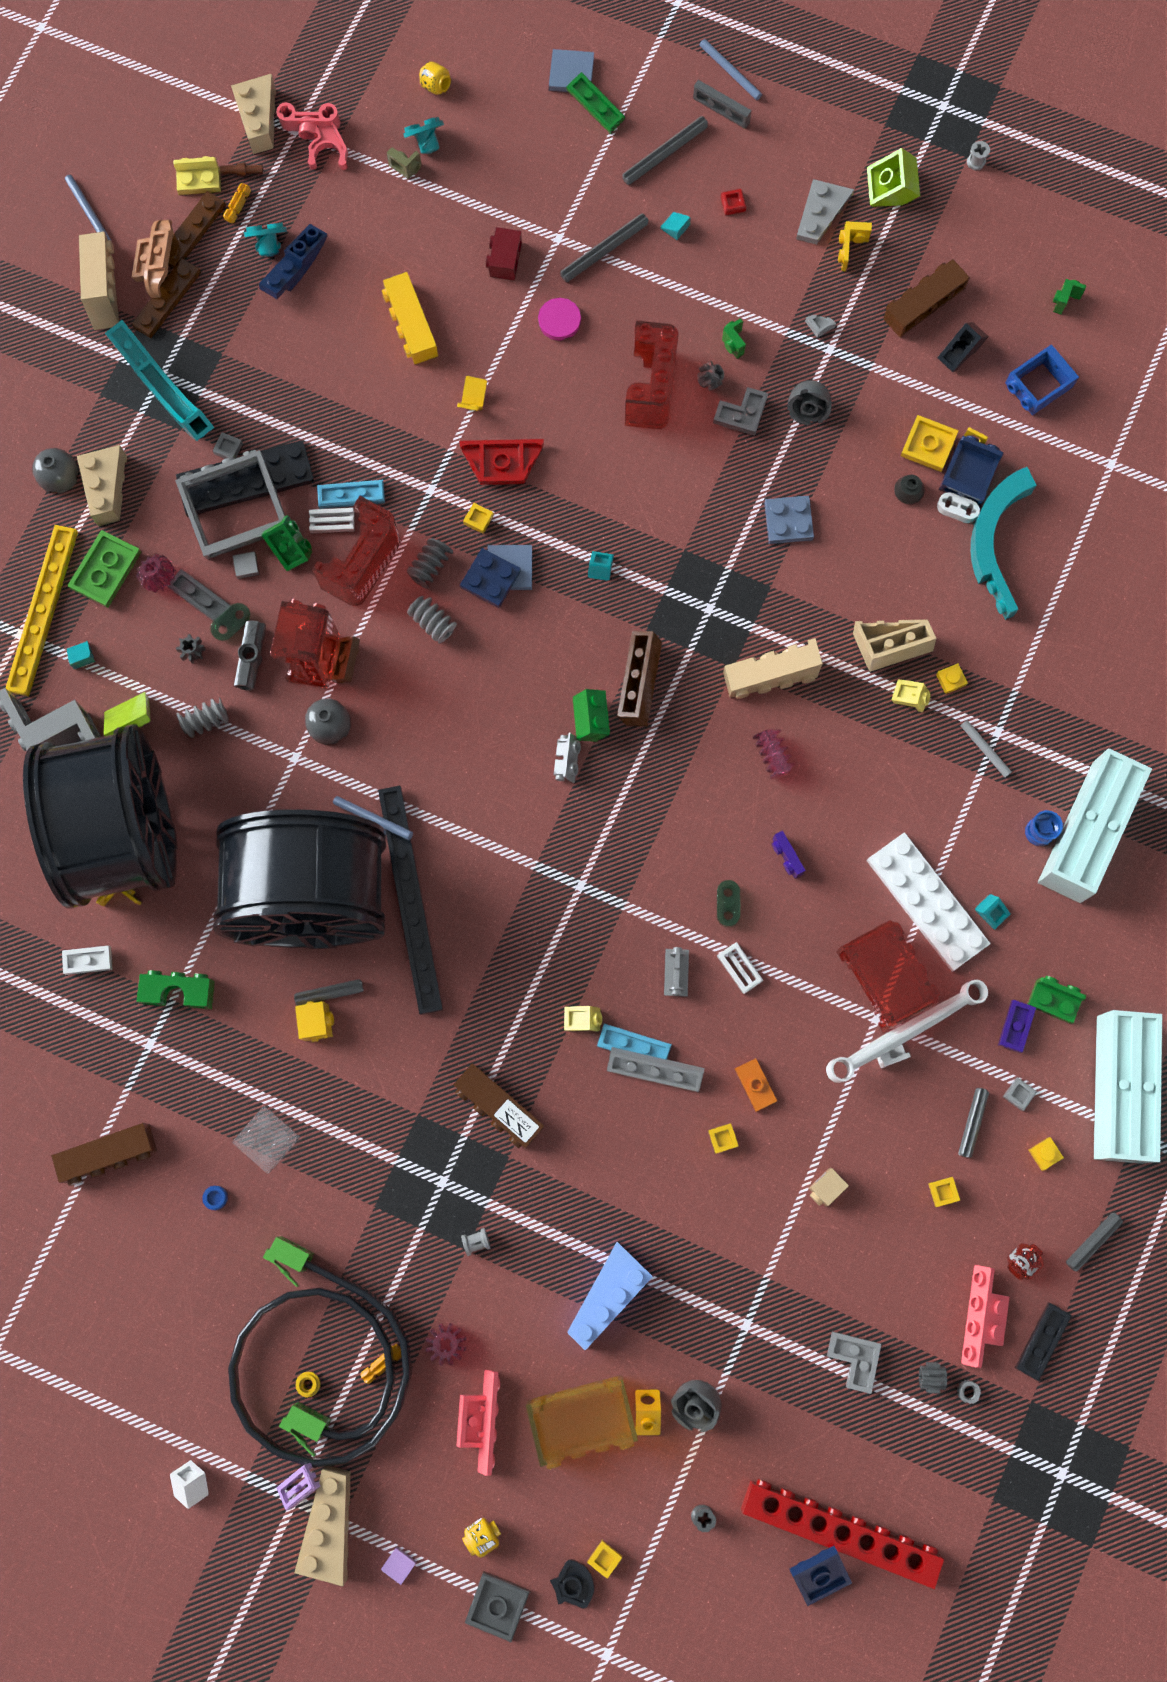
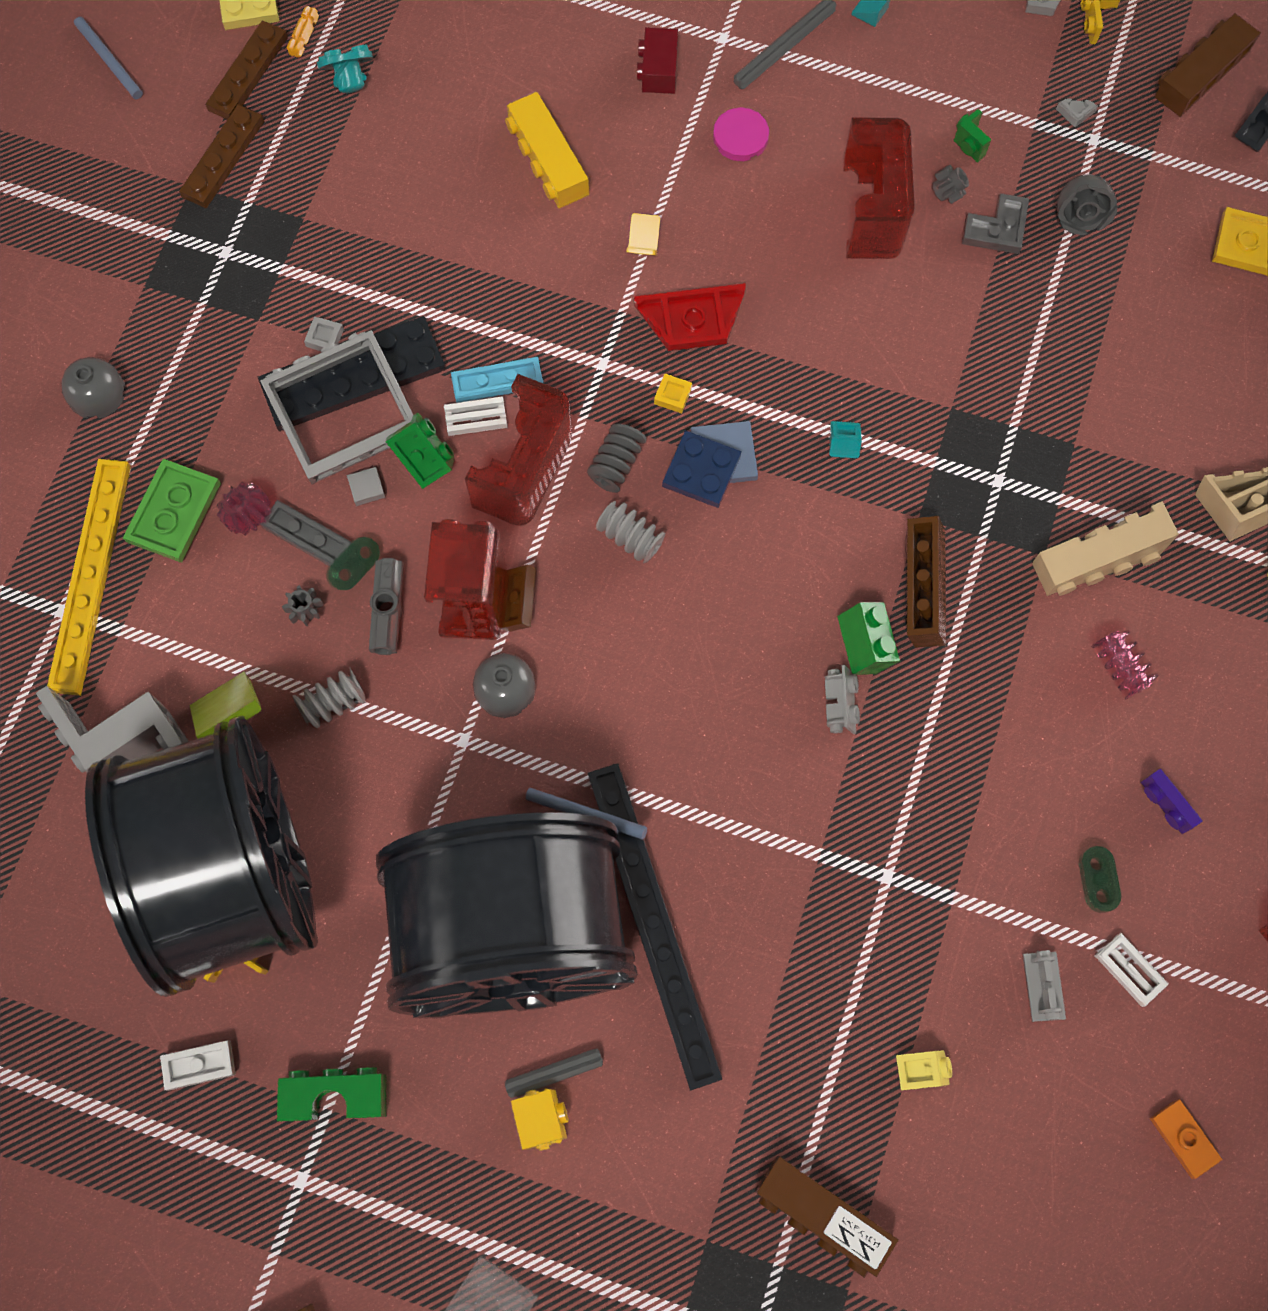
camera: 10 degrees left, 5 degrees down
(80, 655) = (149, 631): teal slope -> none
(98, 280) = (130, 140): tan wedge -> none
(102, 481) = (160, 396): tan wedge -> none
(153, 257) = (200, 105): nougat plate -> none
(159, 384) = (266, 298): teal arch -> none
(295, 263) = (389, 94): dark blue slope -> none
(633, 1042) = (1002, 1100): medium azure tile -> none
(655, 1069) = (1041, 1133): light grey tile -> none
(723, 1138) = (1155, 1225): yellow plate -> none
(789, 519) = (1083, 355): sand blue plate -> none
(909, 489) = (1233, 300): pearl dark grey cone -> none

